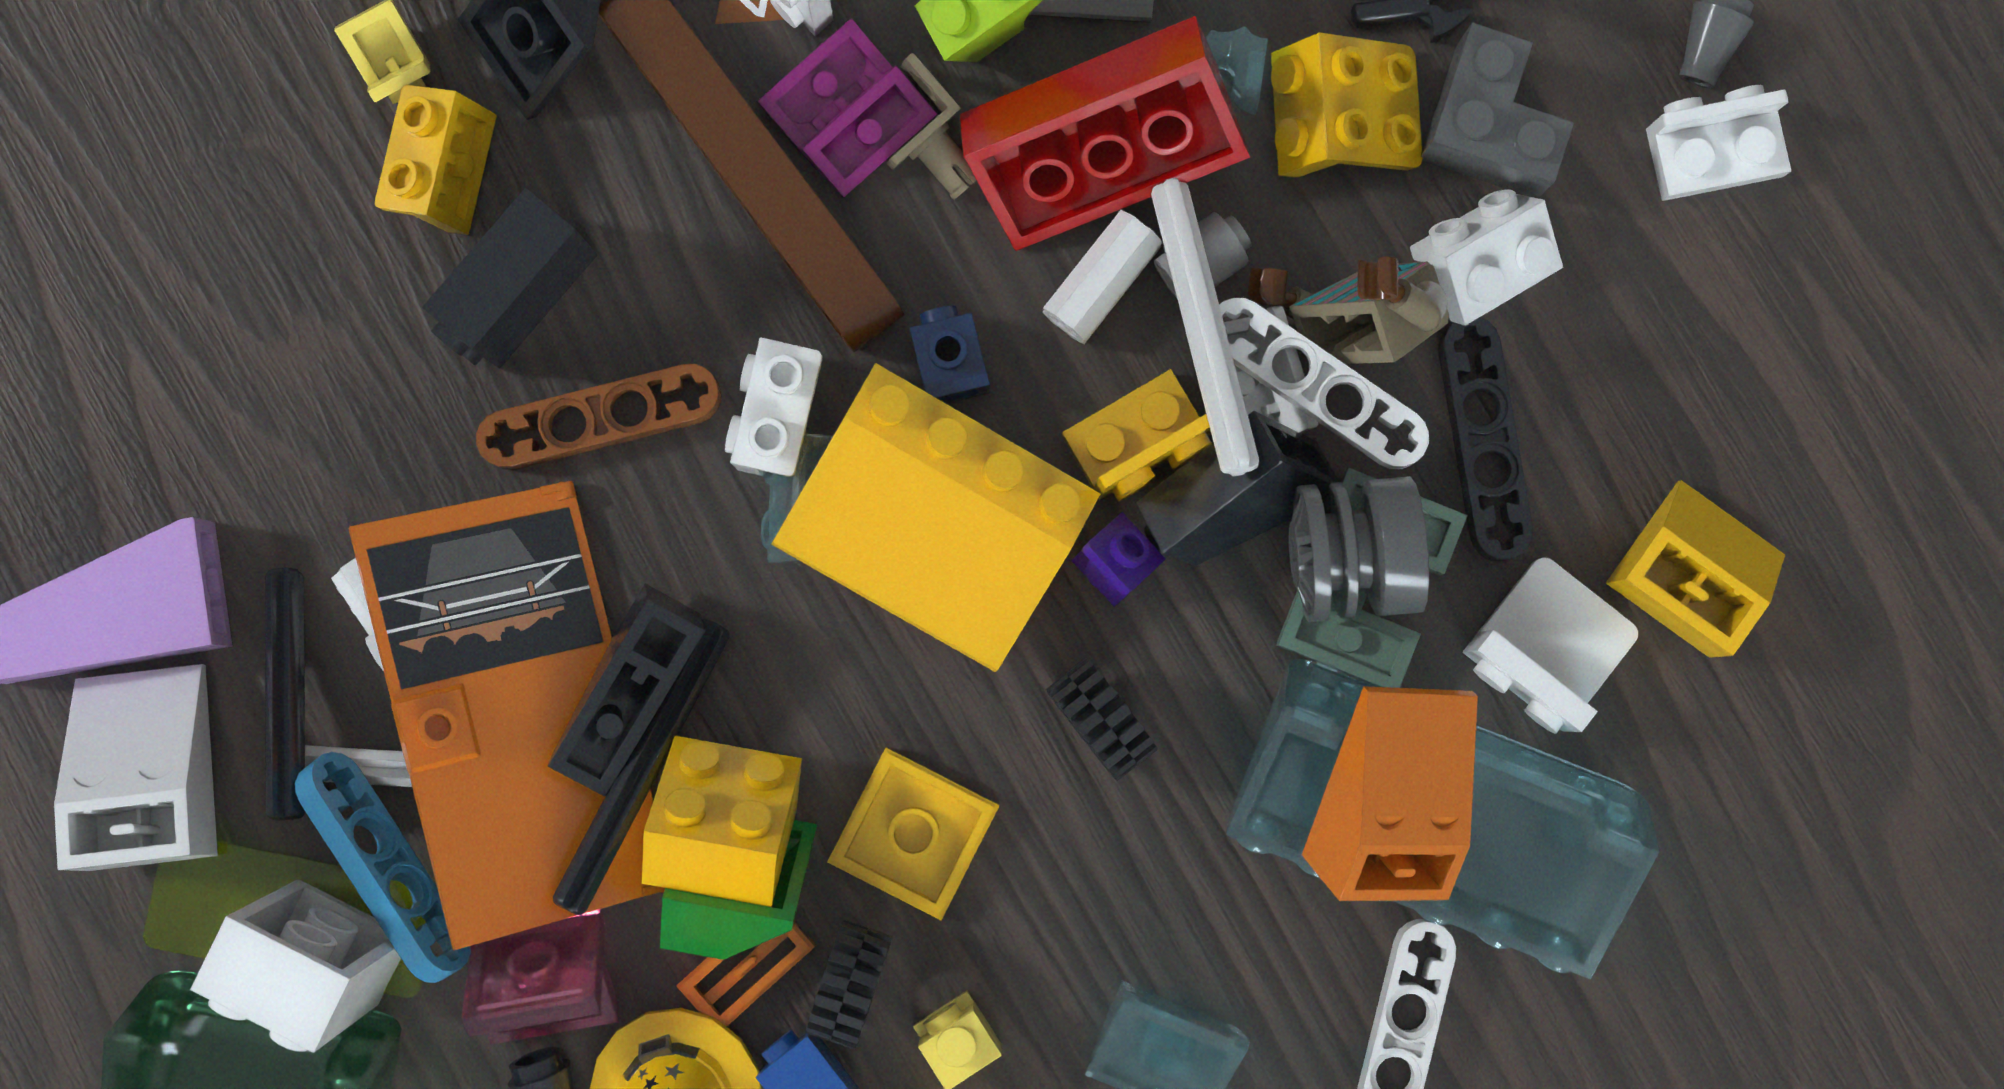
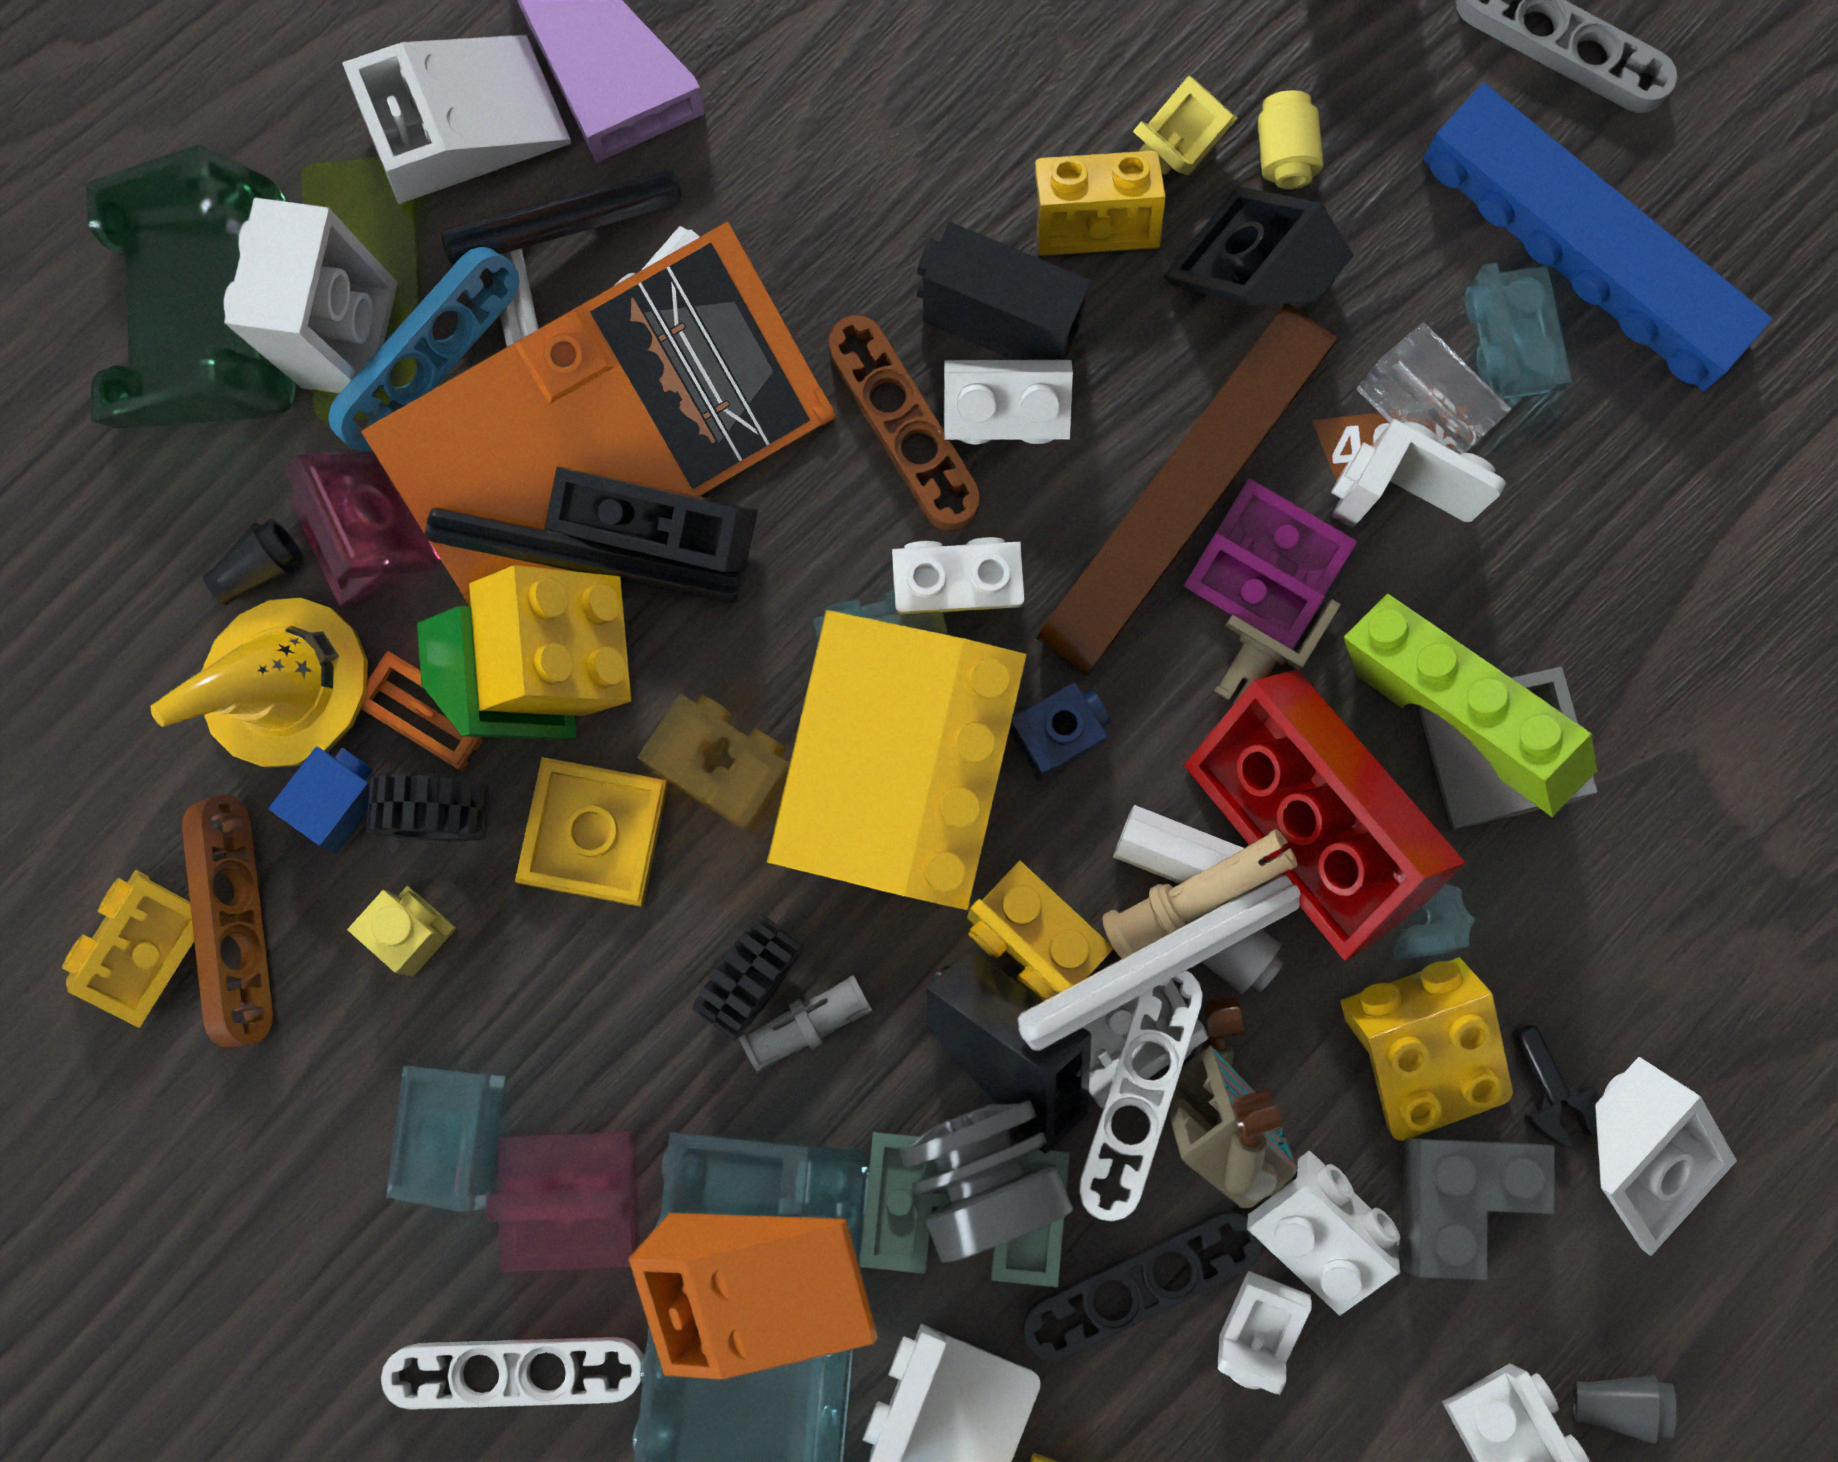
camera: 75 degrees right, 5 degrees down
(612, 307) = (1007, 400): none -> white bracket
(869, 729) = (735, 794): none -> clear yellow brick
(1118, 559) = (910, 948): dark purple bracket -> none
(1153, 302) = (1175, 907): none -> tan pin
(1157, 679) = (805, 1024): none -> light grey pin
(1257, 953) = (564, 1201): none -> clear pink bracket
(1559, 342) = (1262, 1332): none -> white bracket

